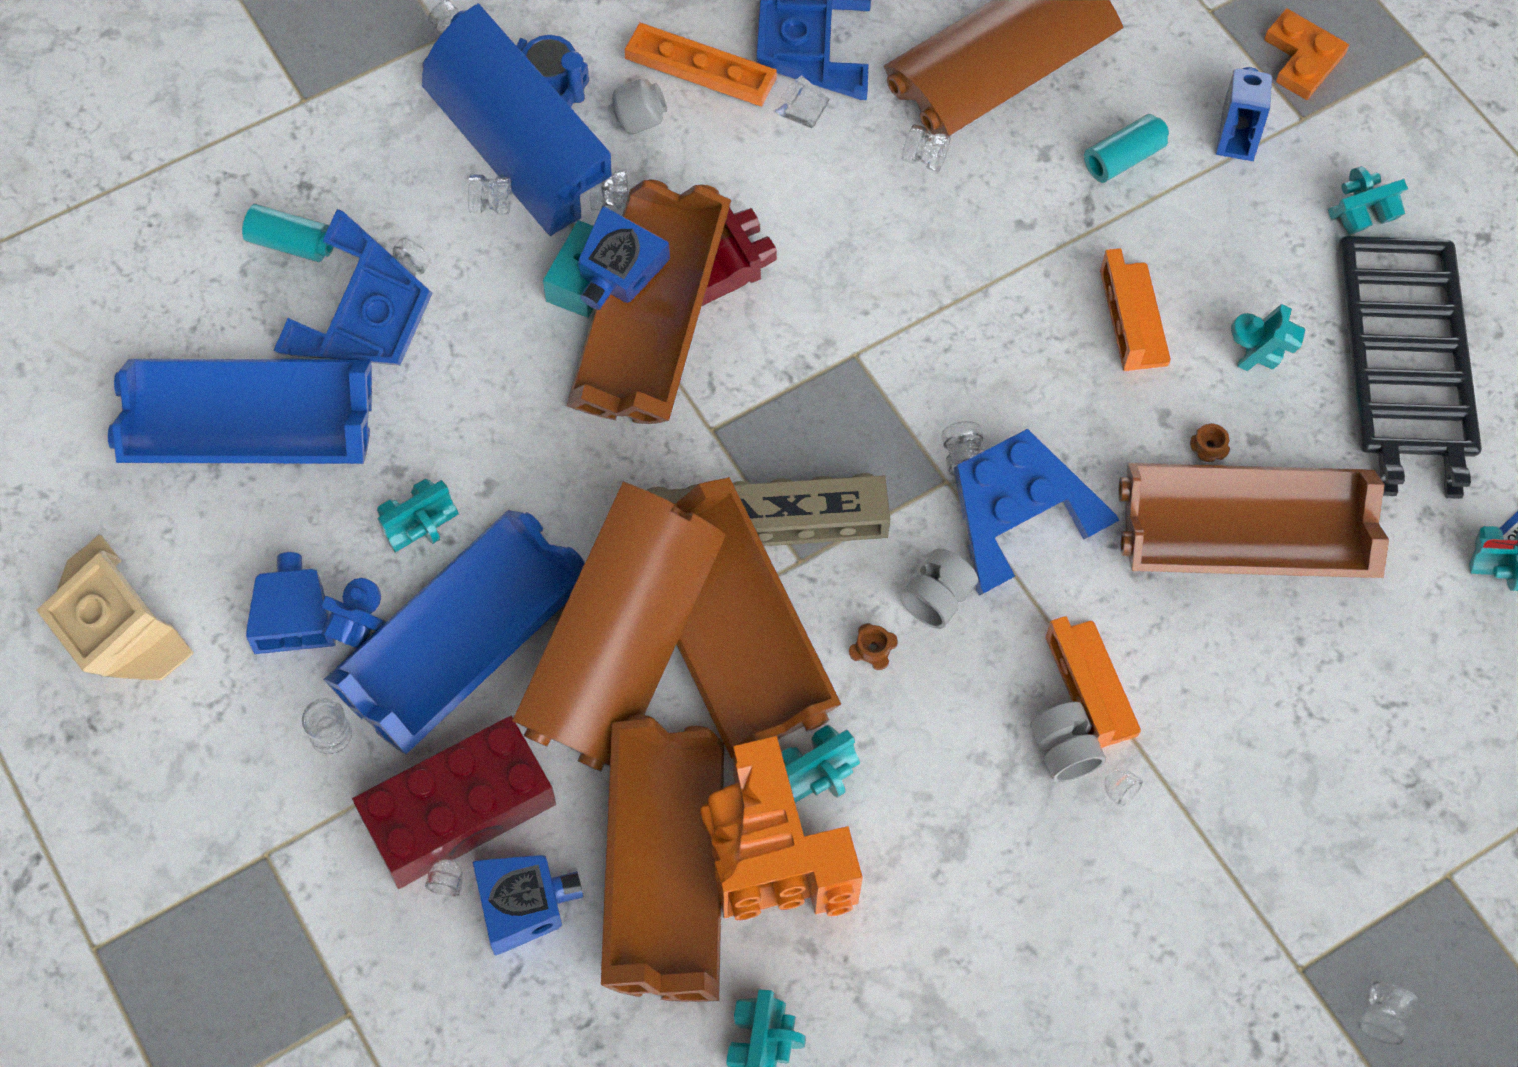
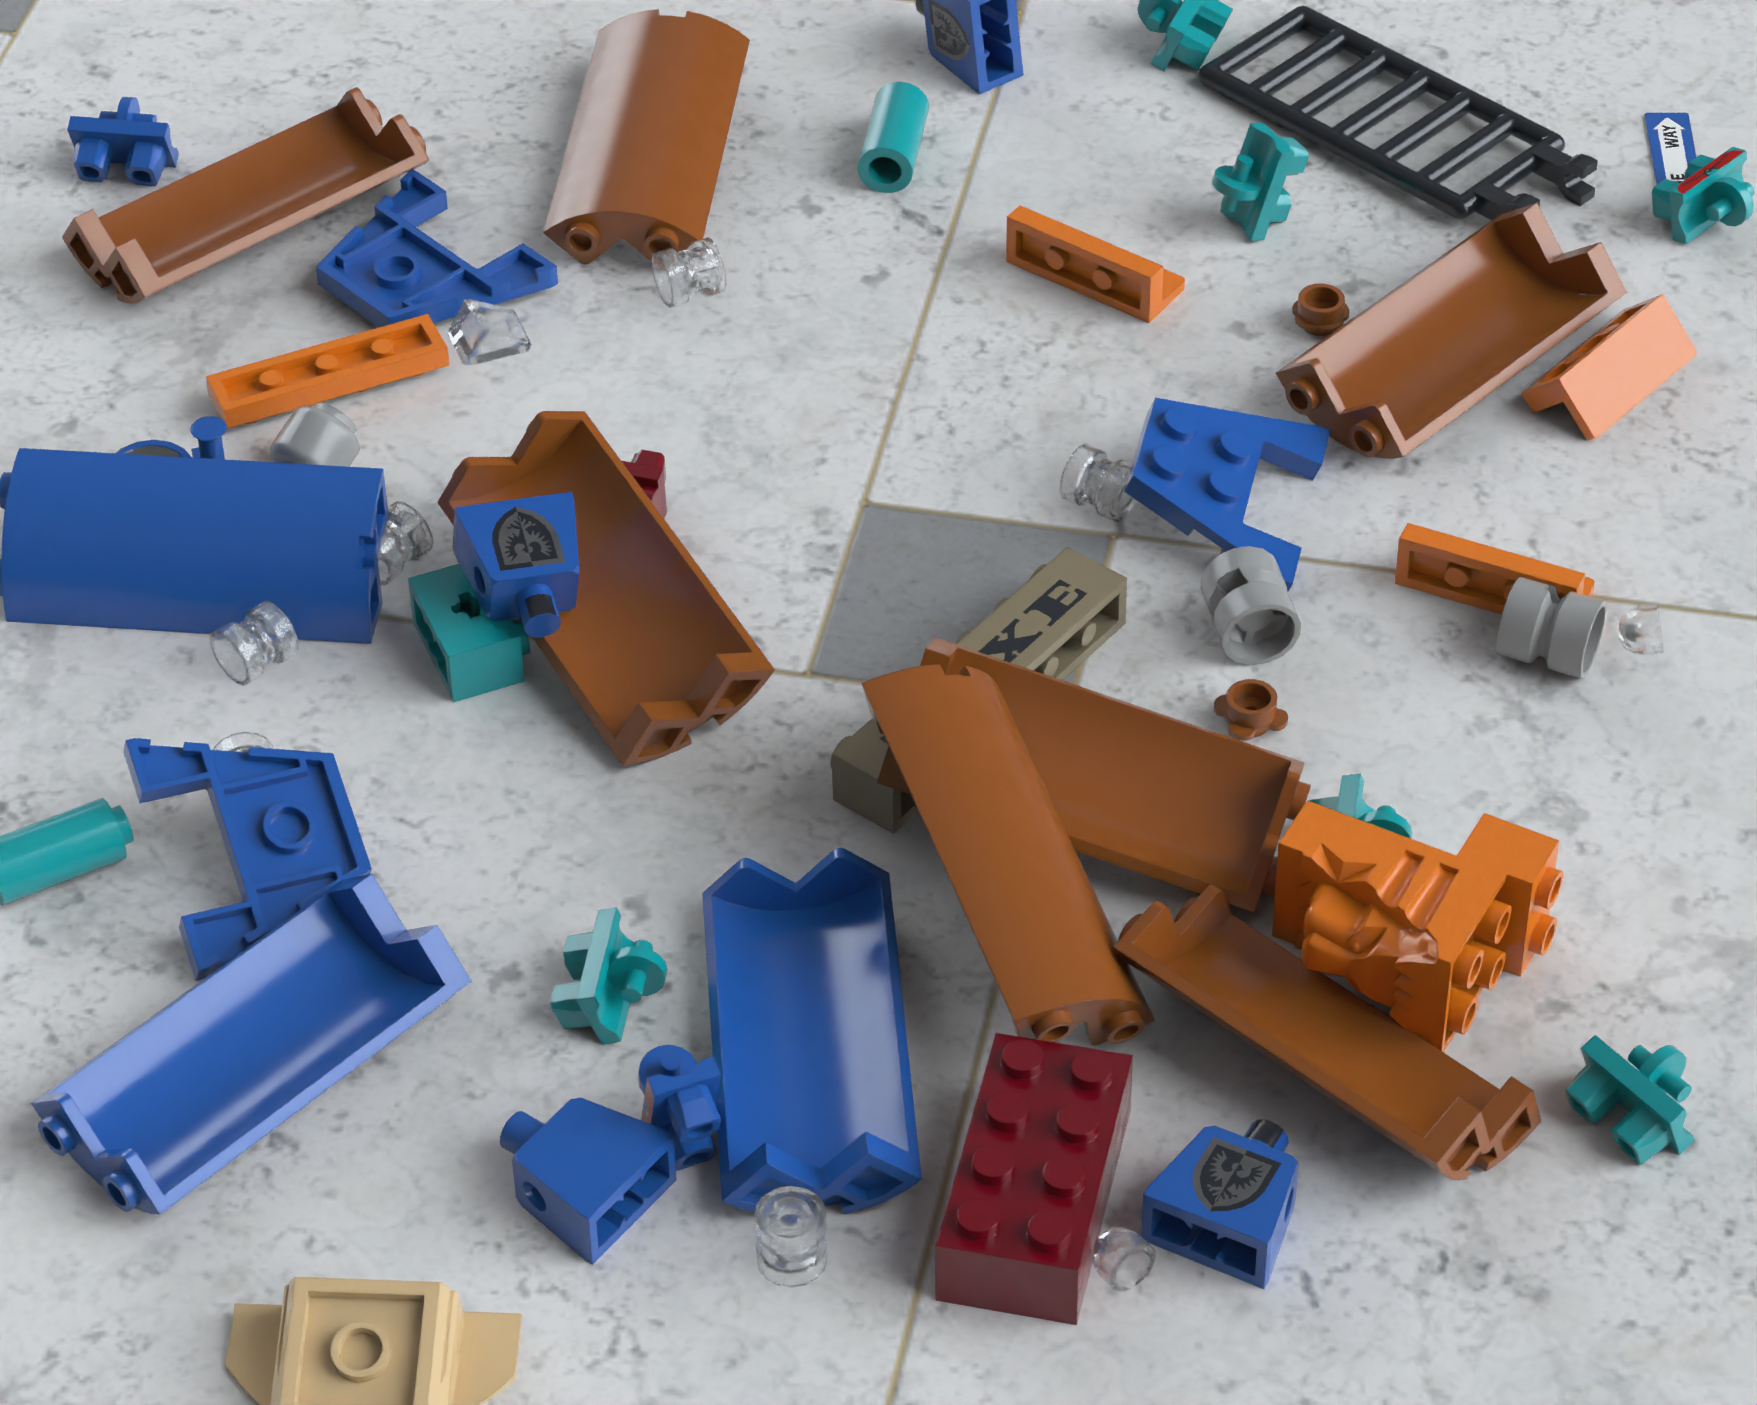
camera: 45 degrees left, 20 degrees down
(1318, 616) = (1615, 367): none -> panel

